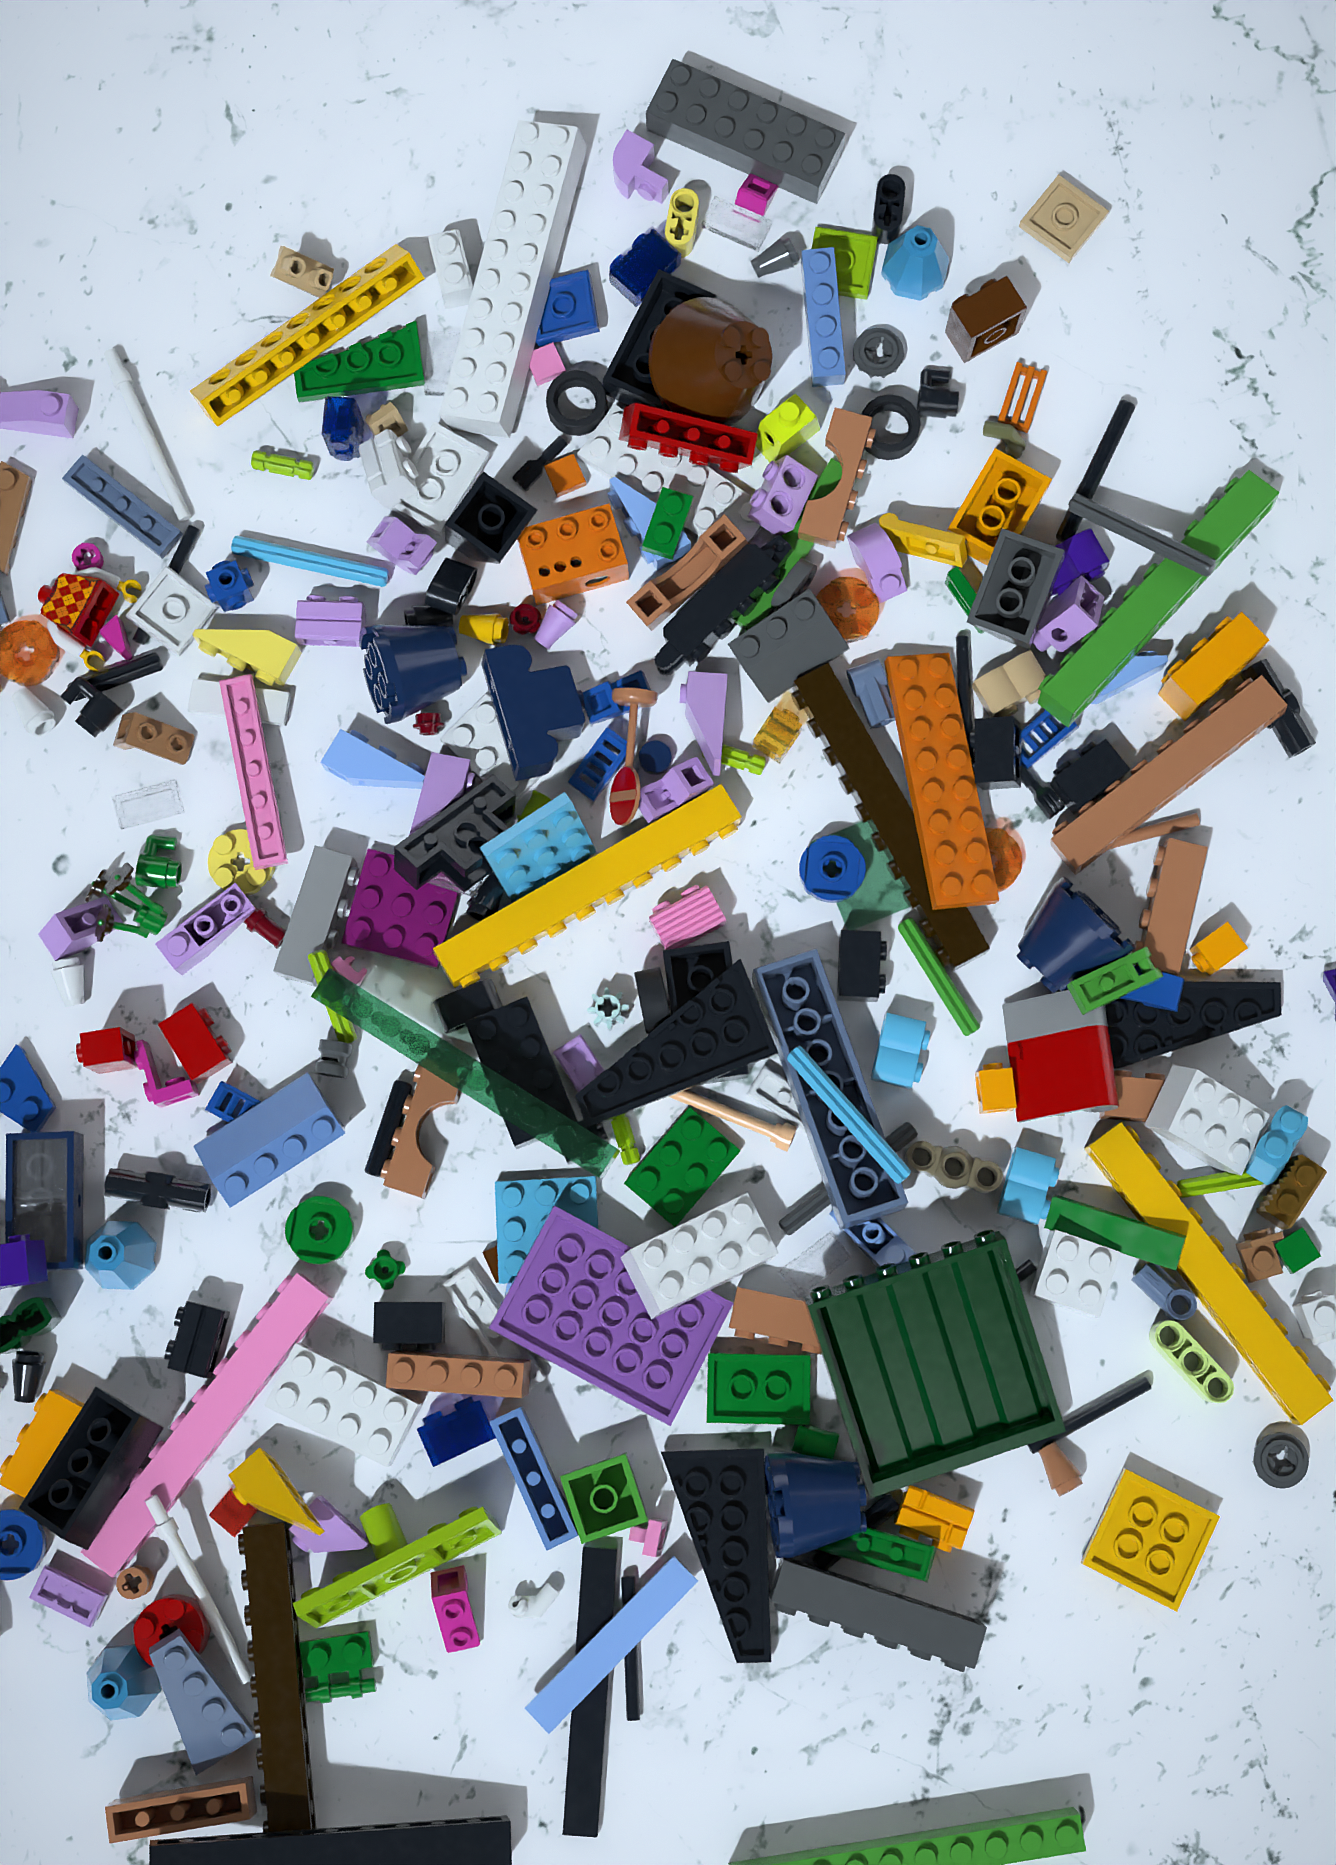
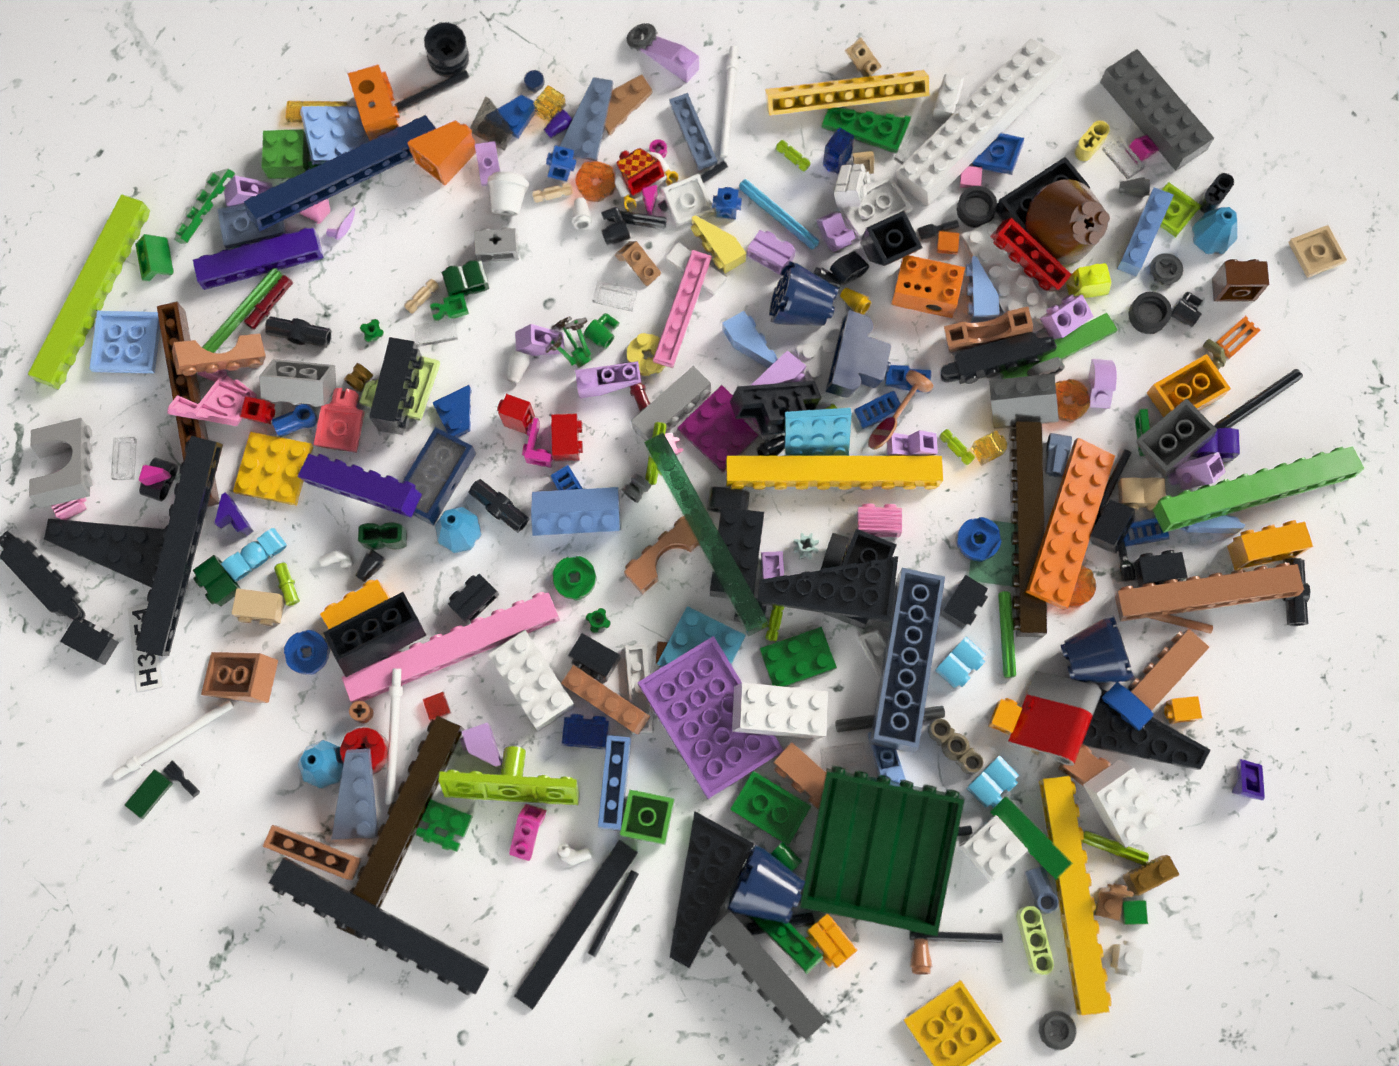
camera: 30 degrees right, 5 degrees down
(68, 1596) = (321, 699): lavender plate -> none
(267, 1488) = (463, 702): yellow slope -> none
(389, 1122) = (649, 539): black axle -> none
(428, 723) = (794, 335): dark red plate -> none
(519, 613) = (881, 302): dark red plate -> none
(555, 624) = (897, 319): lavender cone -> none
(611, 1644) = (603, 903): light blue tile -> none
(631, 169) = (1080, 98): lavender brick -> none
(636, 270) = (1050, 151): clear blue brick -> none
(652, 1536) = (662, 856): bright pink tile -> none
(655, 757) = (911, 422): dark blue tile -> none
(667, 523) = (992, 296): green plate -> none
(706, 712) = (954, 413): lavender slope -> none
(780, 1134) = (865, 672): light nougat piece -> none
(847, 439) = (1084, 340): nougat arch -> none
(848, 1115) = (911, 679): medium azure axle -> none
(925, 541) = (1136, 385): yellow plate -> none
(1114, 981) = (1111, 690): bright green plate -> none
(1142, 535) = (1268, 448): dark grey axle -> none
(1277, 1145) = (1157, 842): medium azure brick -> none

